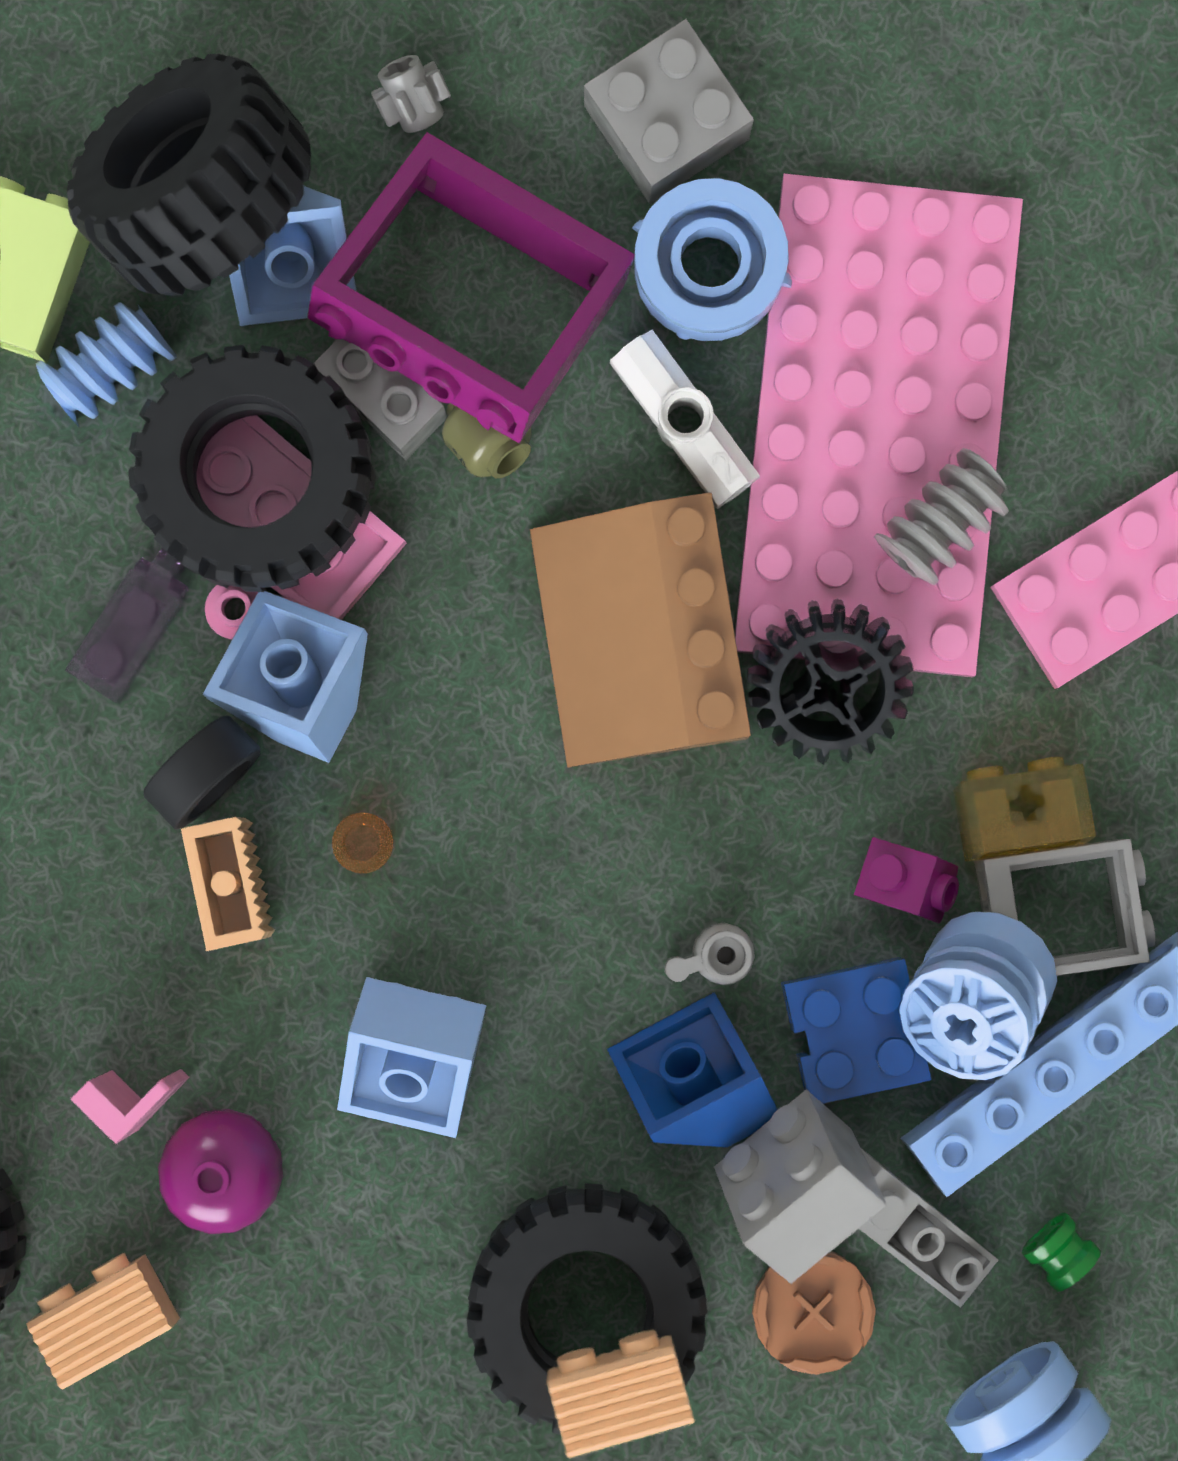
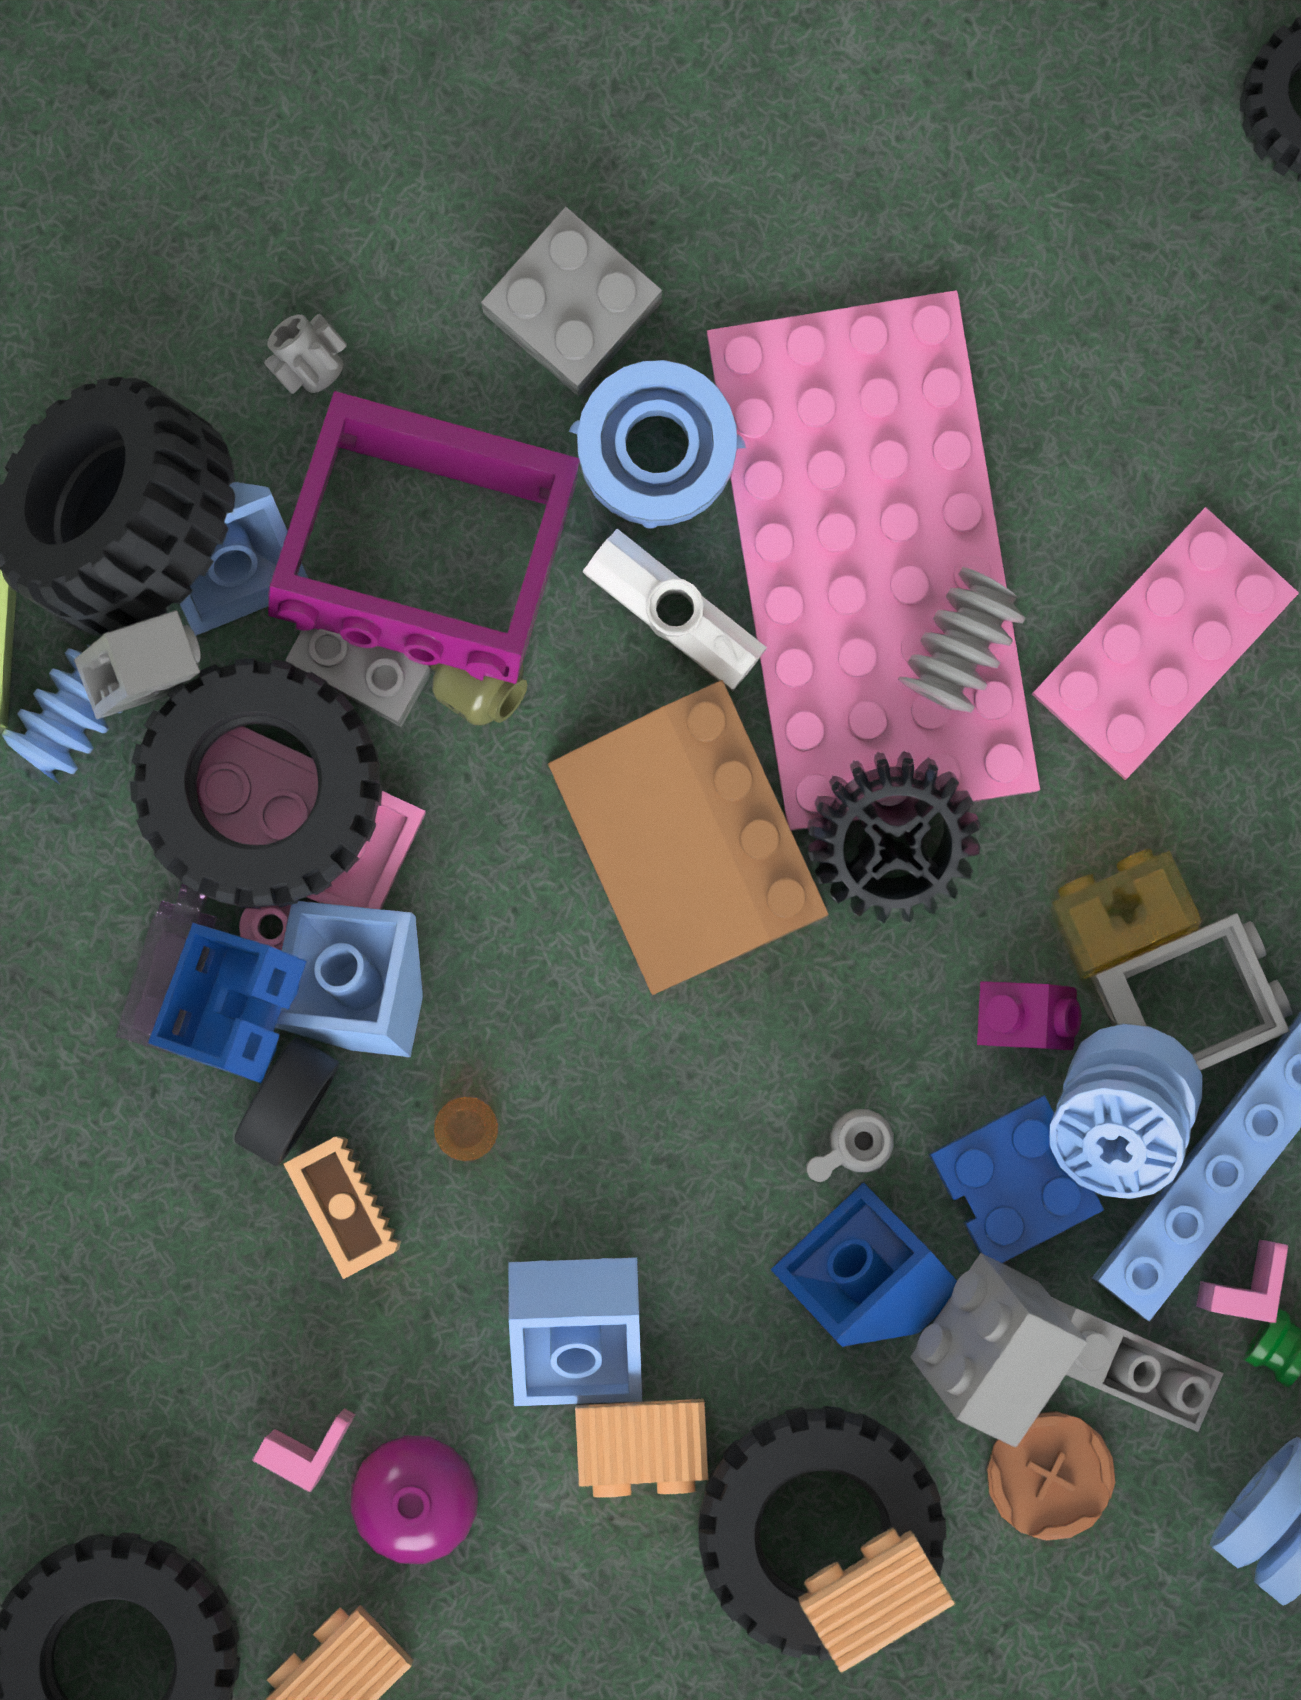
camera: 15 degrees left, 0 degrees up
(170, 323) = (138, 664): none -> light grey brick
(172, 667) = (229, 1003): none -> blue piece
(442, 1180) = (641, 1445): none -> light nougat brick
(1062, 1196) = (1262, 1299): none -> bright pink panel

